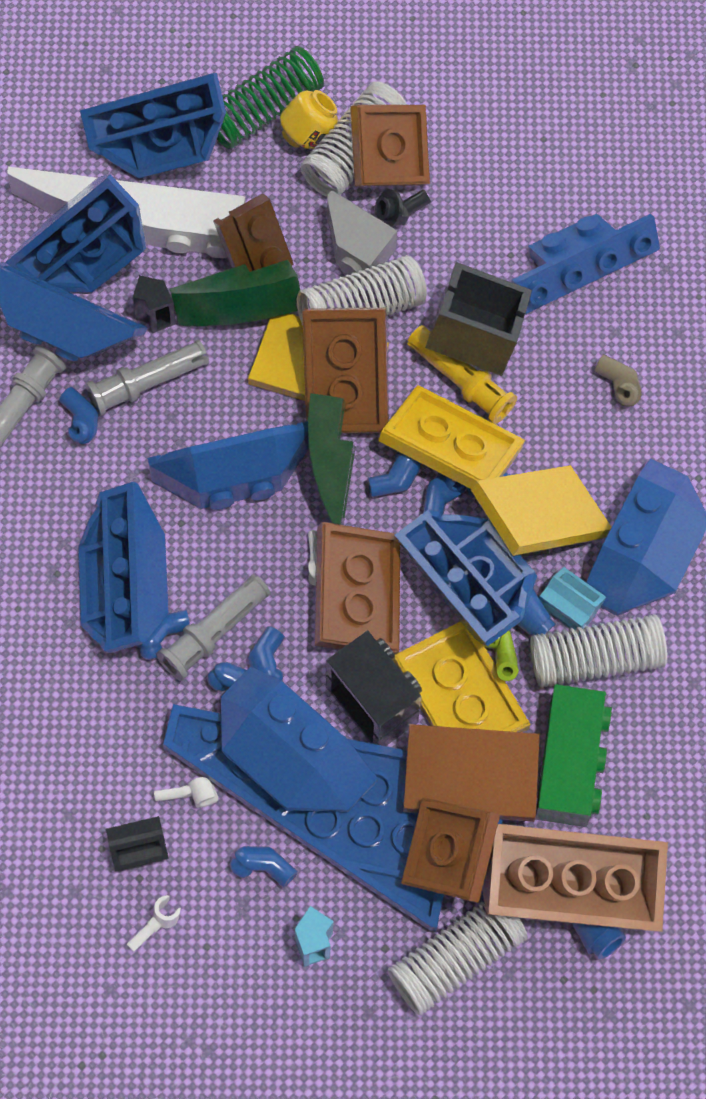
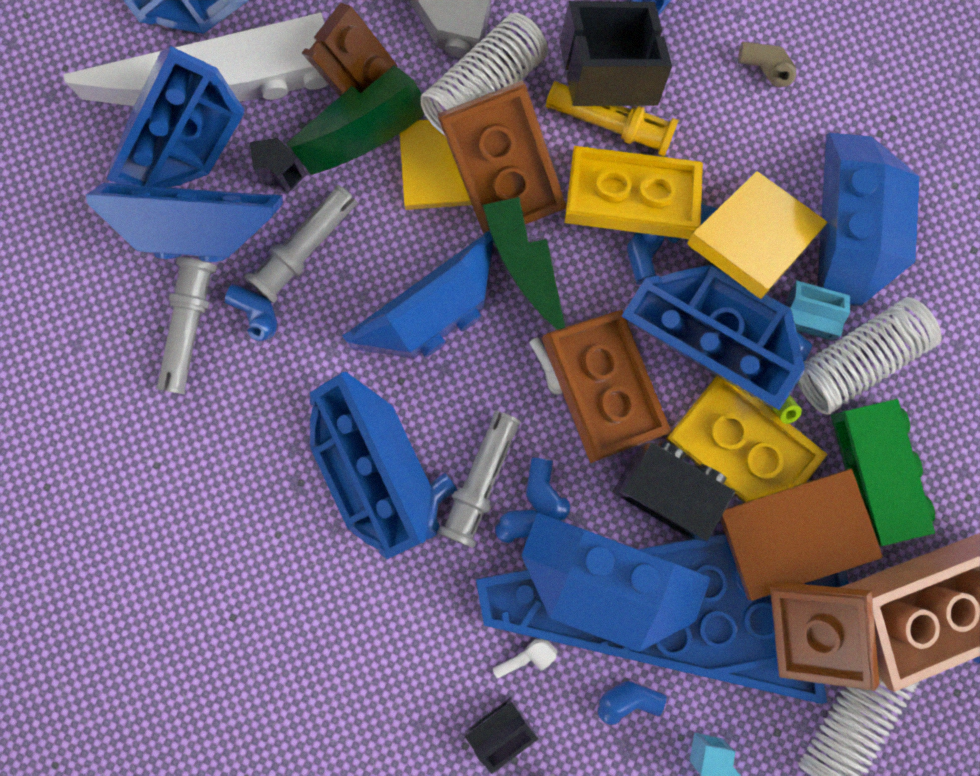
camera: 20 degrees left, 15 degrees up
(397, 480) = (595, 253): blue arm -> none

